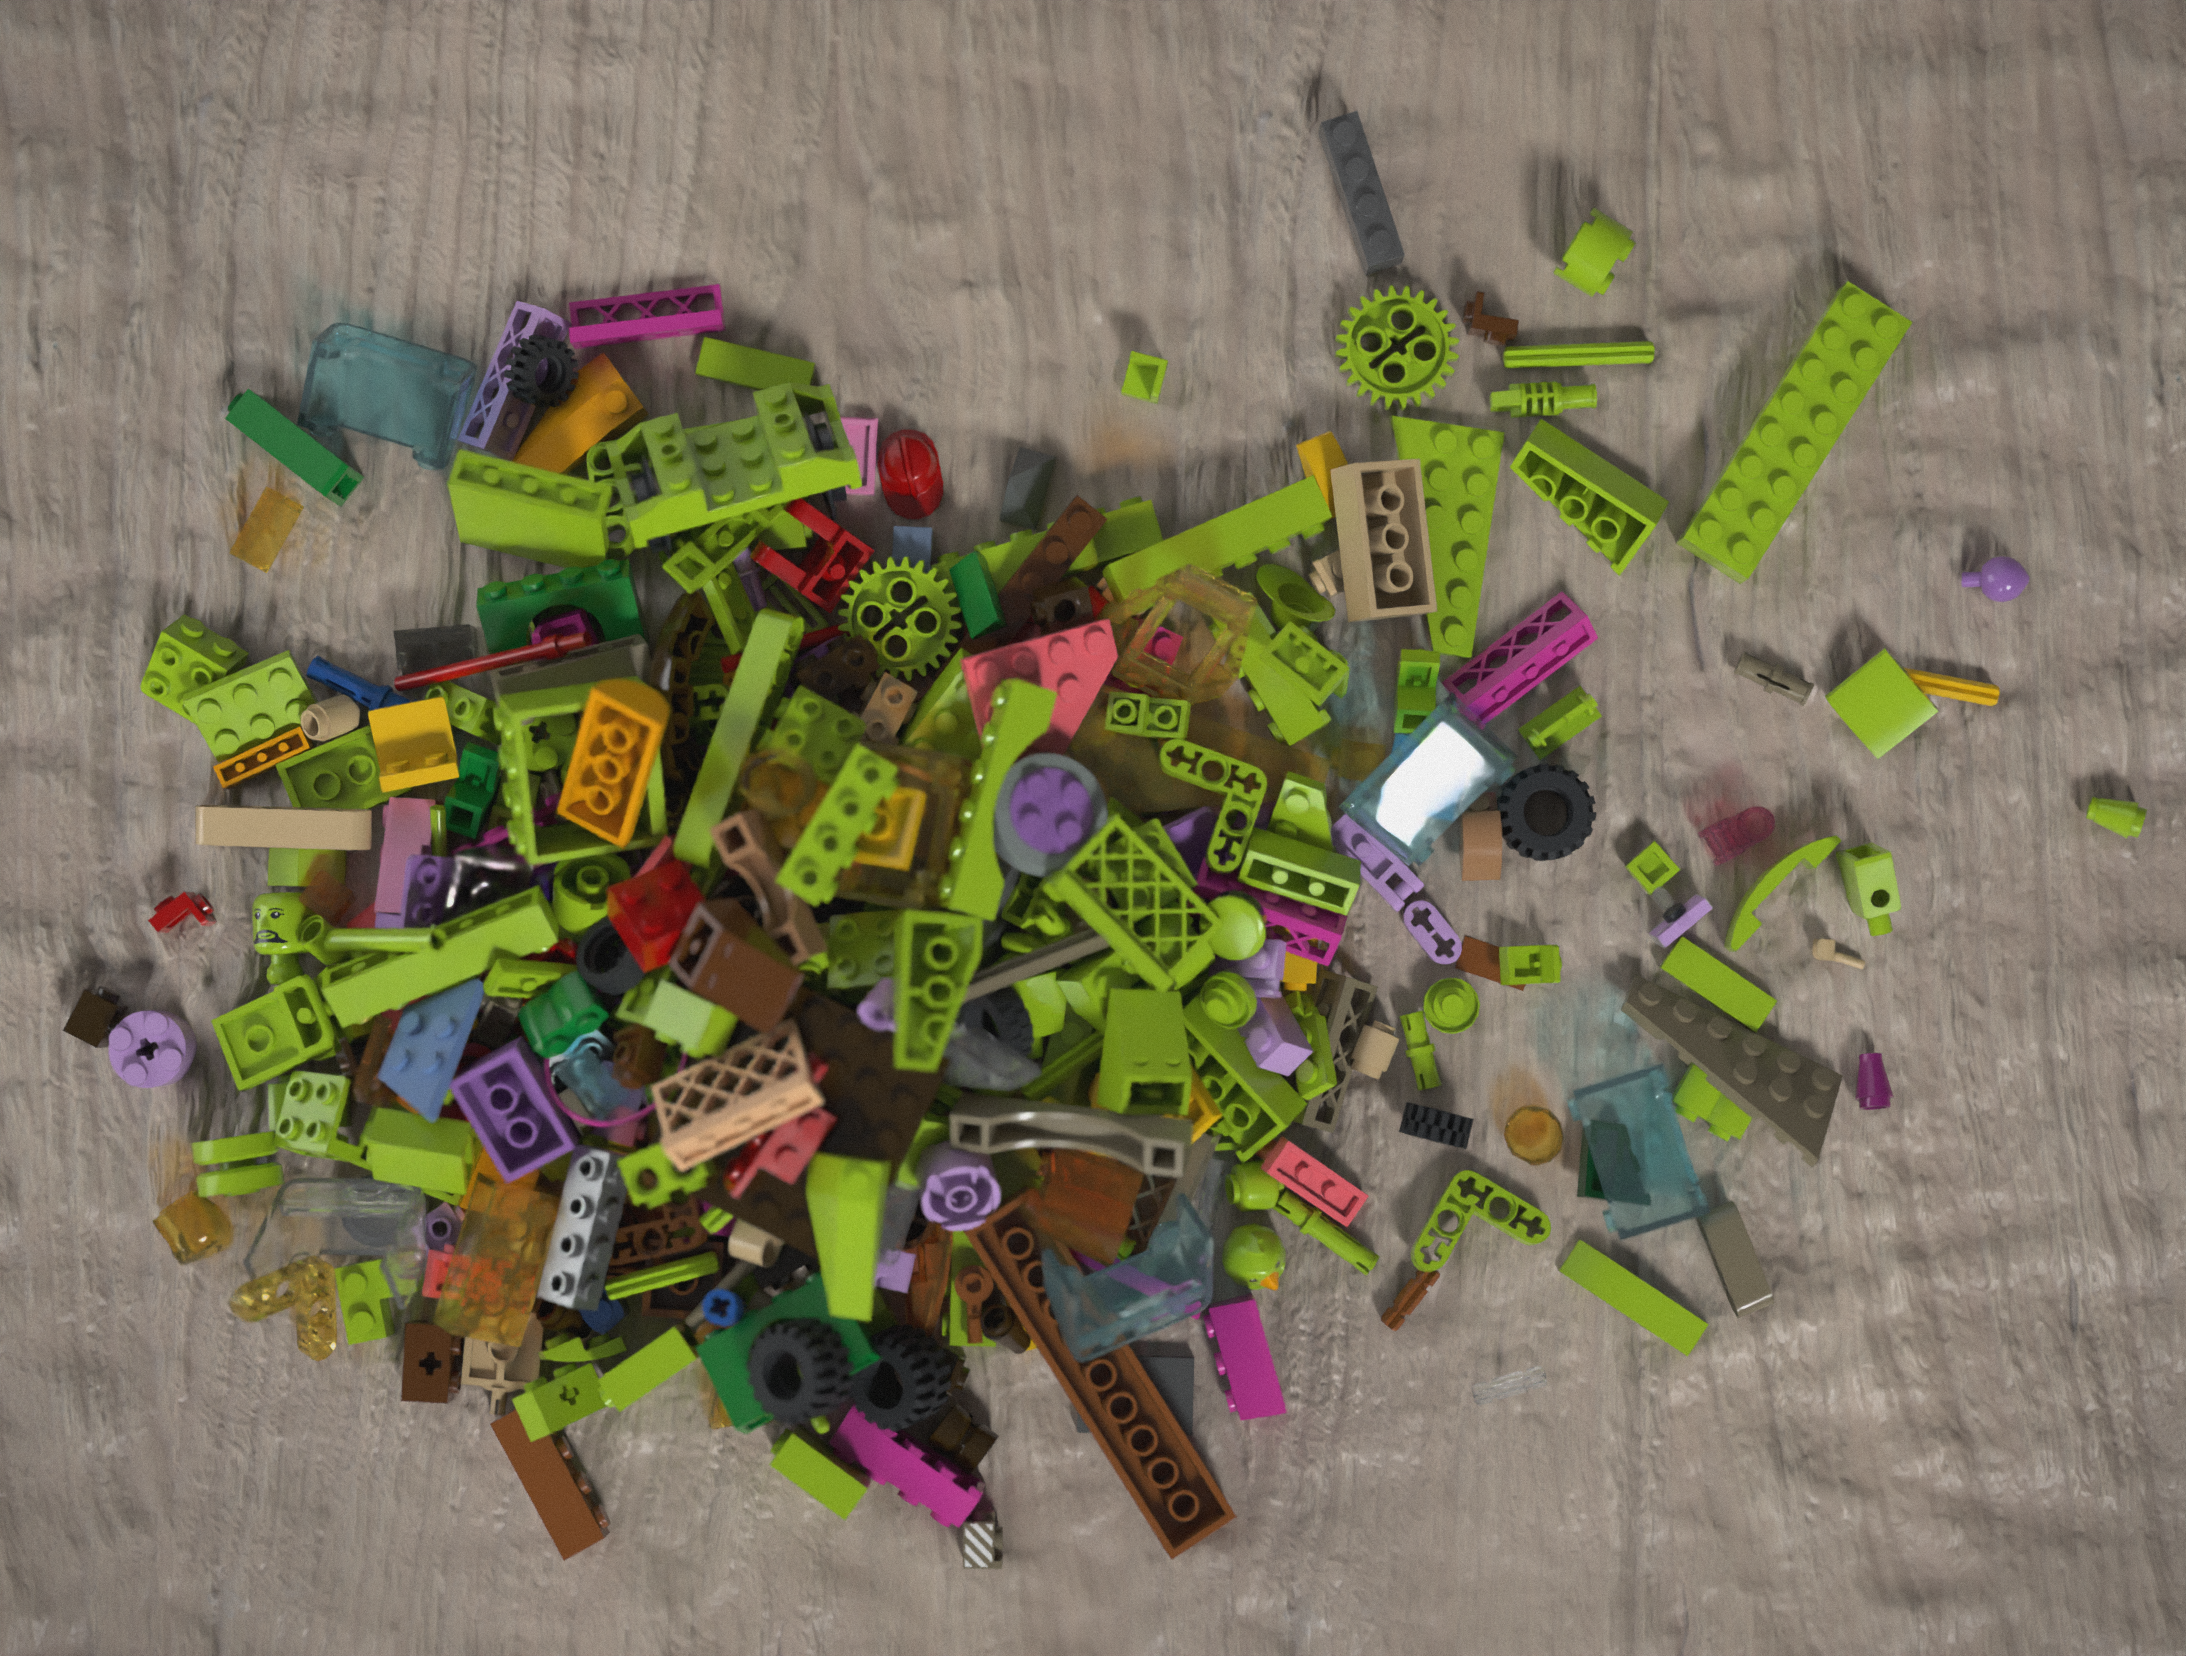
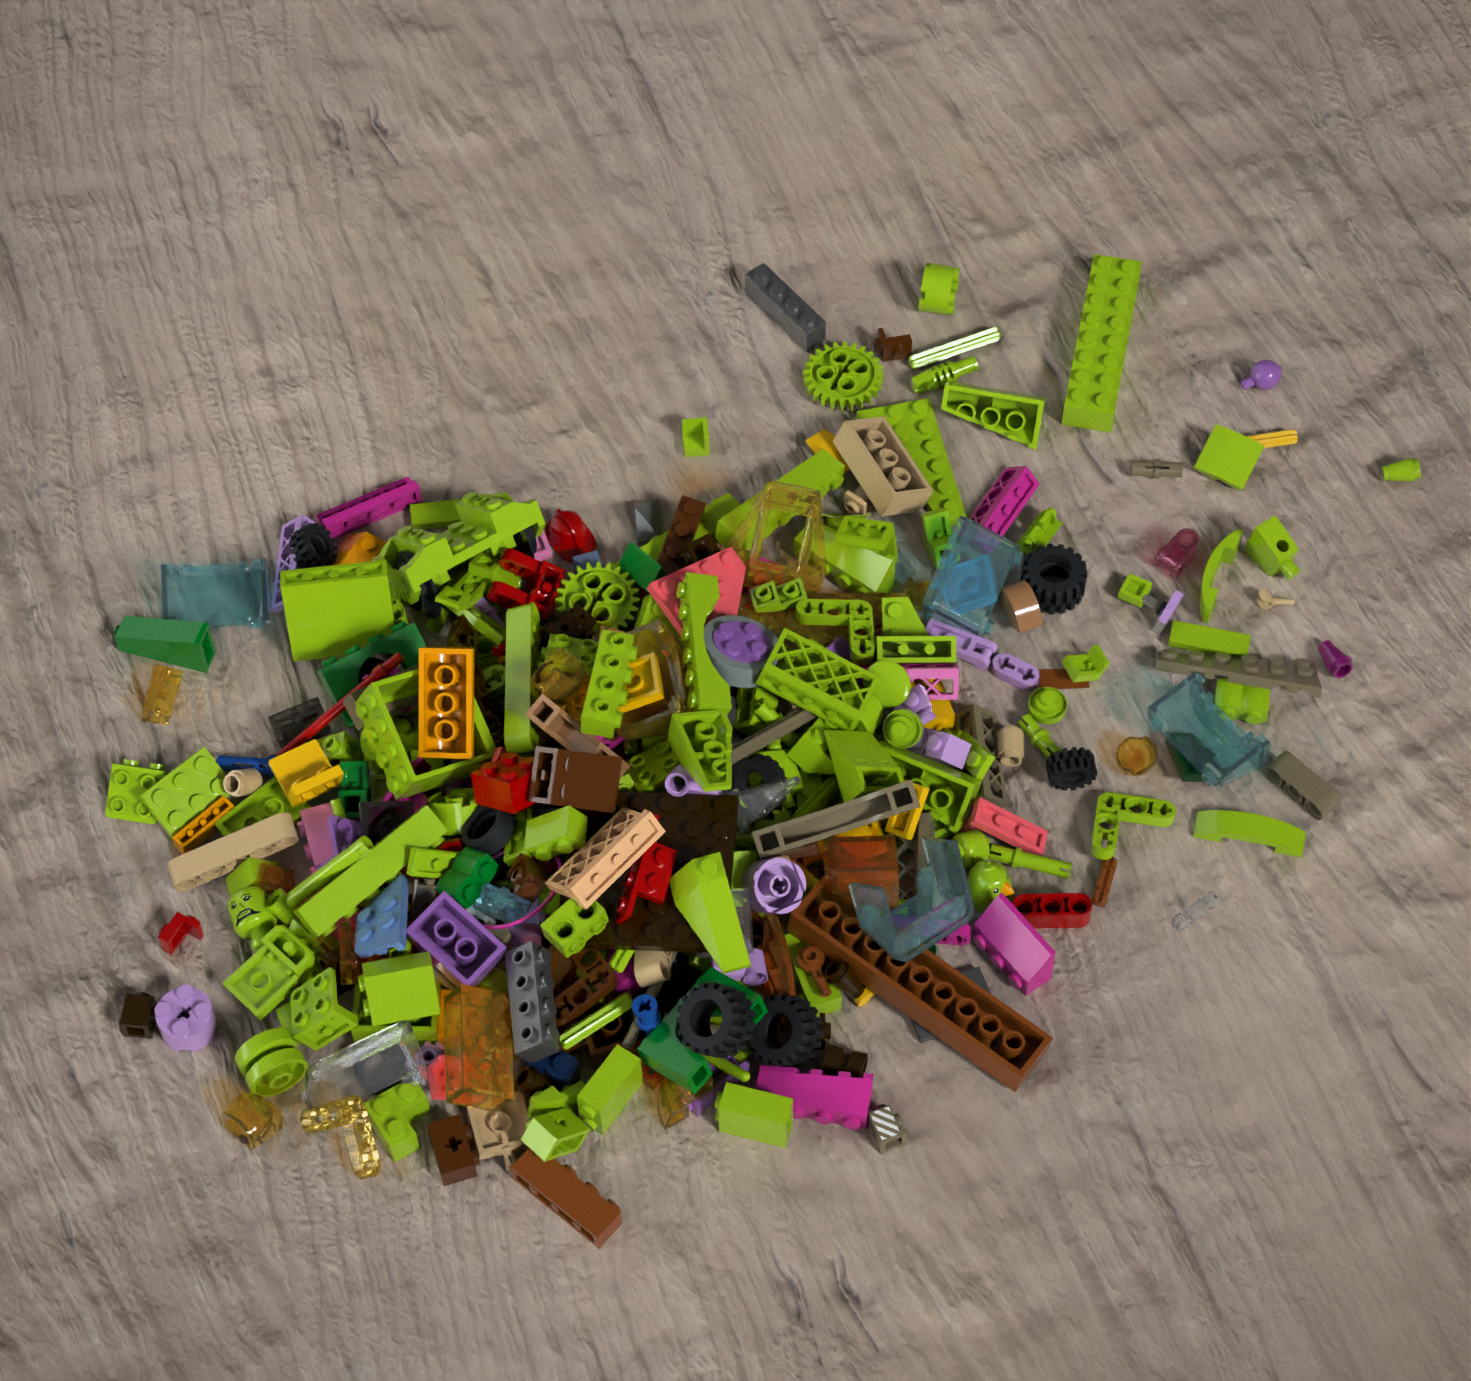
camera: 20 degrees left, 30 degrees down
(1337, 1327) = (1062, 903): none -> red beam

